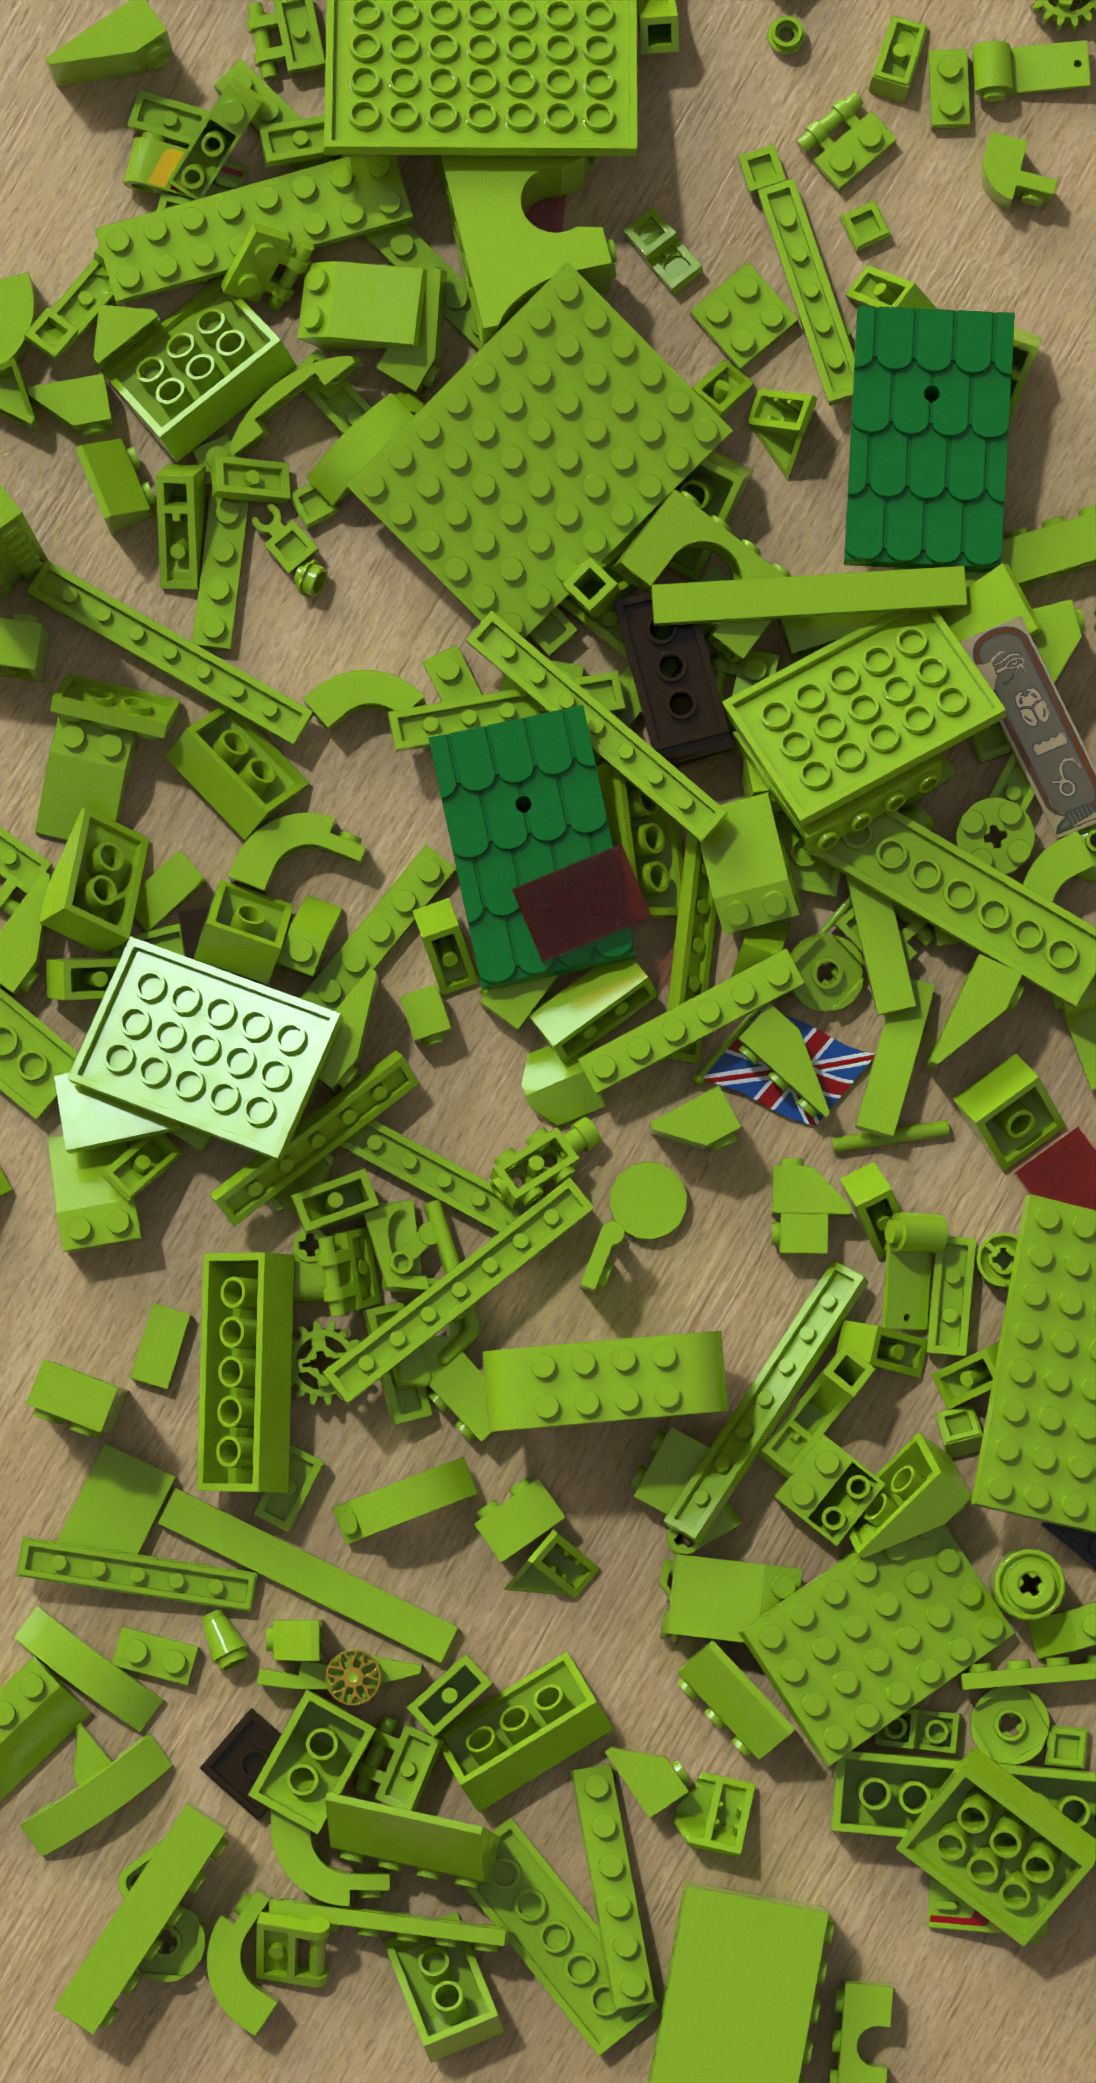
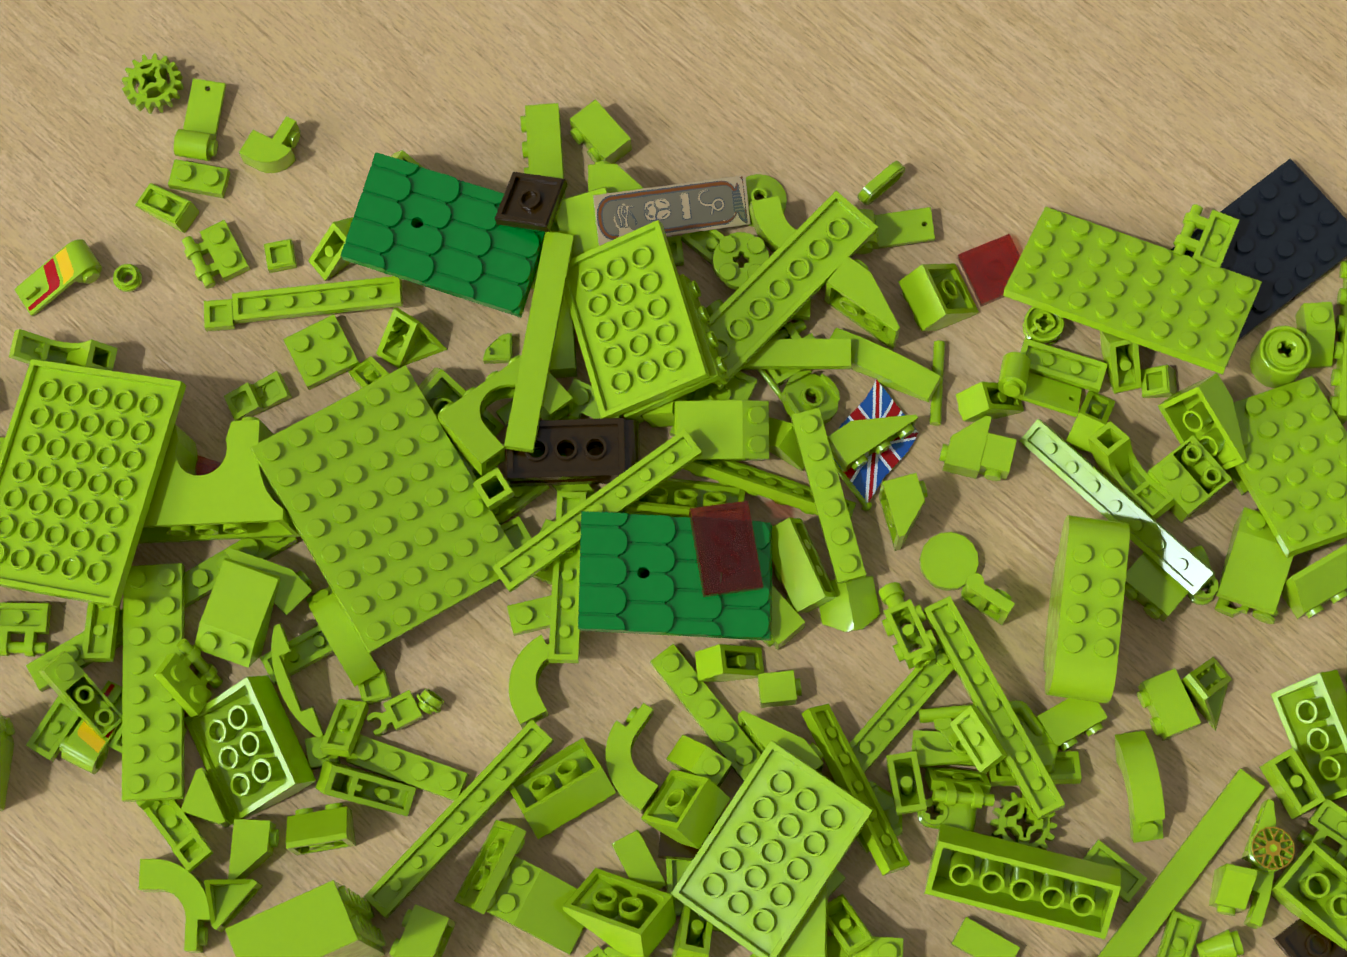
camera: 75 degrees left, 10 degrees down
(408, 1279) = (978, 739): none -> lime plate
(801, 549) = (500, 350): none -> lime tile
(998, 536) = (531, 201): none -> dark brown tile

